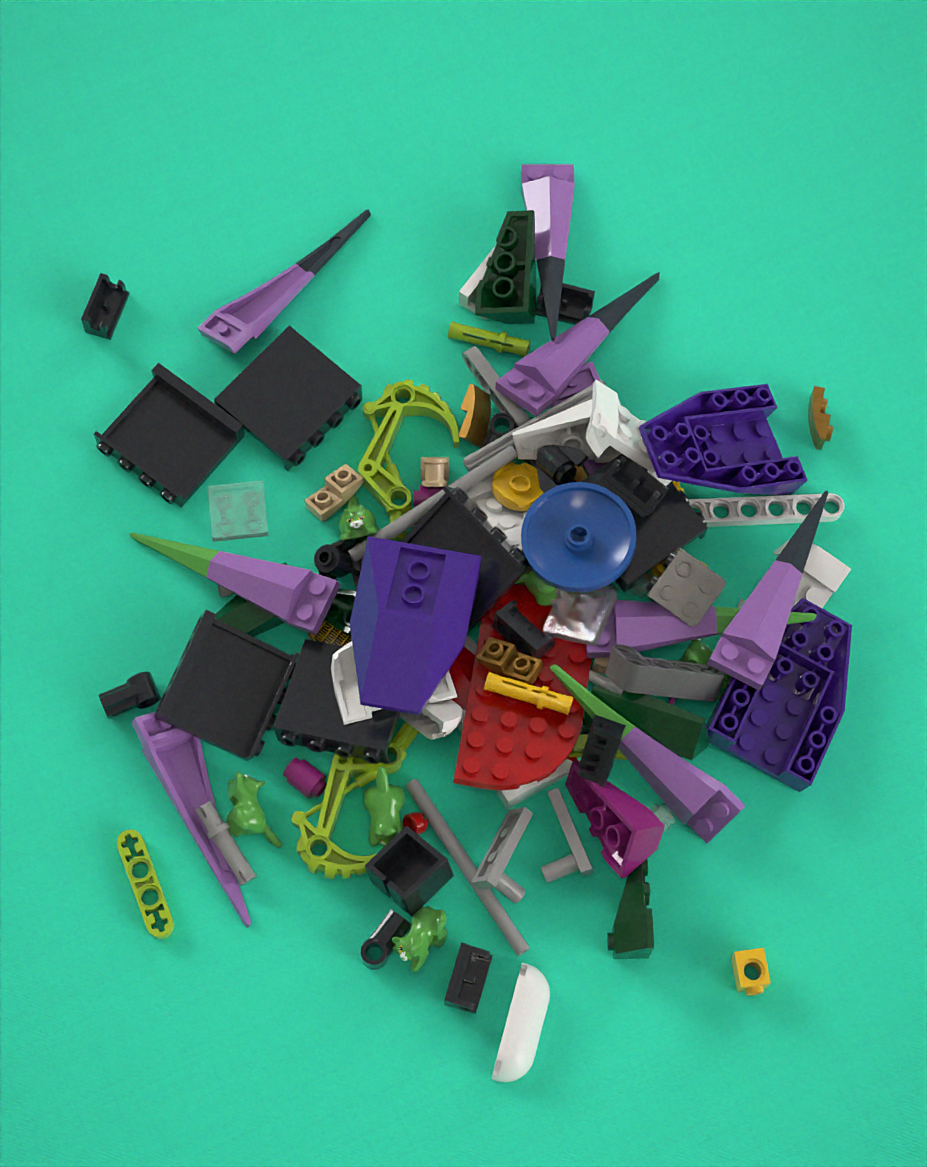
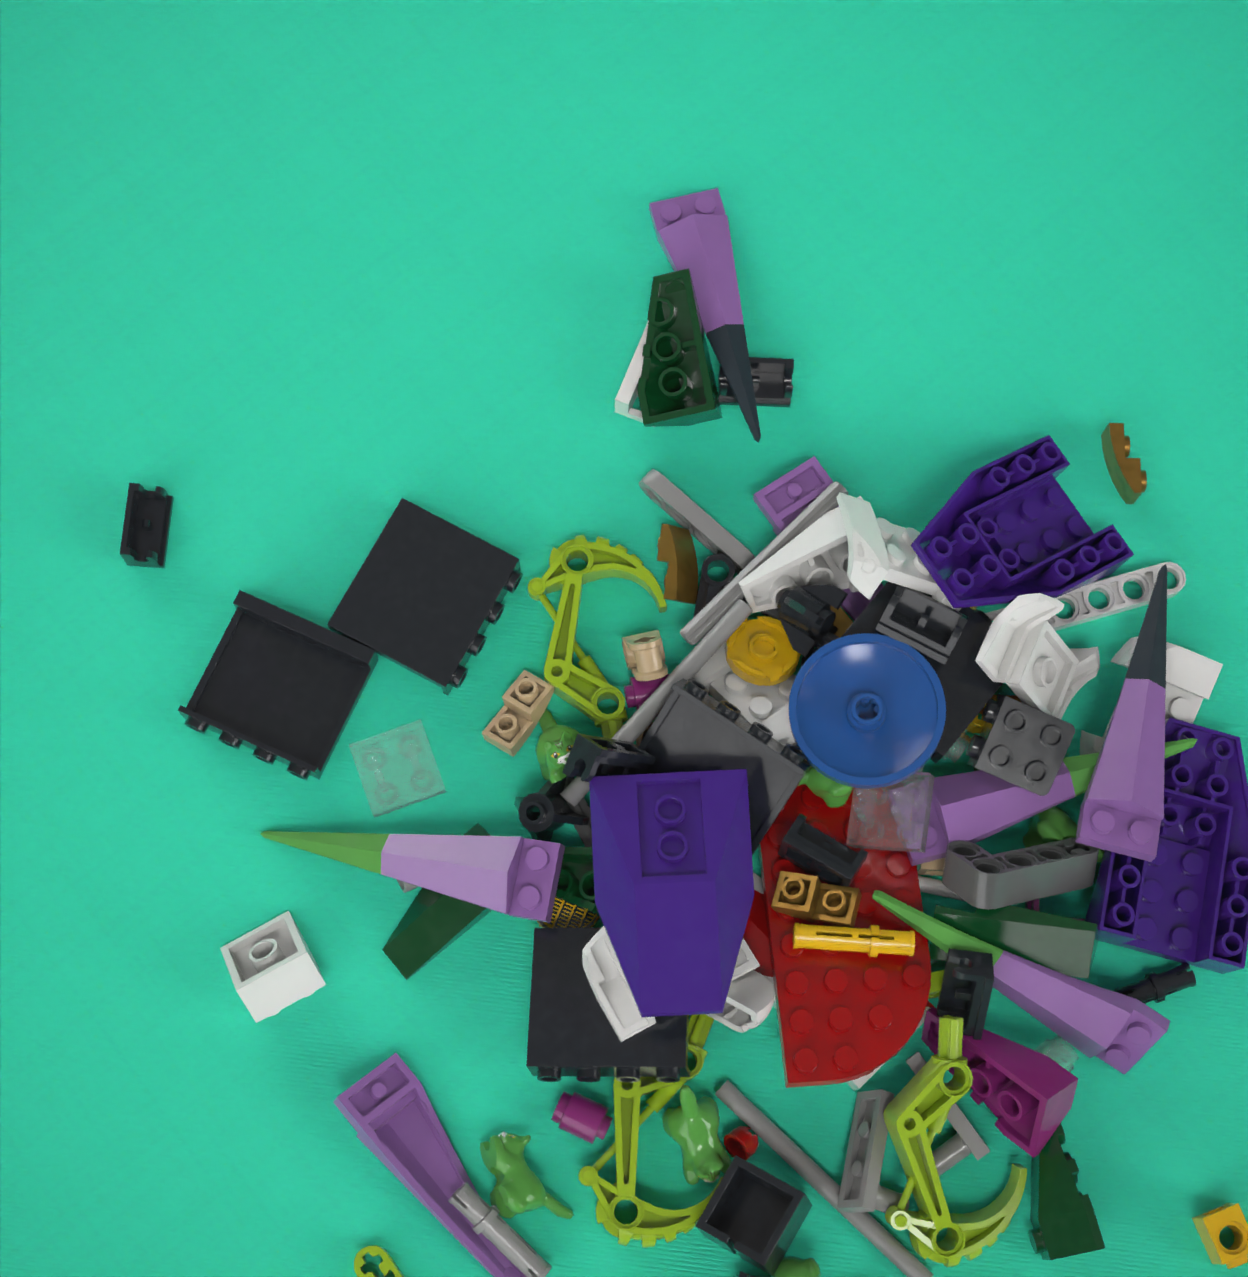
camera: 15 degrees left, 5 degrees up
(114, 625) = (272, 967): none -> white slope
(137, 692) = (327, 1054): black piece -> none
(226, 687) = (447, 1020): black panel -> none
(253, 312) = (348, 487): medium lavender plate -> none
(379, 525) = (605, 757): none -> black hinge
(518, 346) = (668, 453): lime pin -> none
(534, 828) = (924, 1106): none -> lime piece
(548, 370) = (759, 484): medium lavender plate -> none
(711, 531) = (1033, 658): none -> white piece
(751, 787) = (1157, 986): none -> black pin

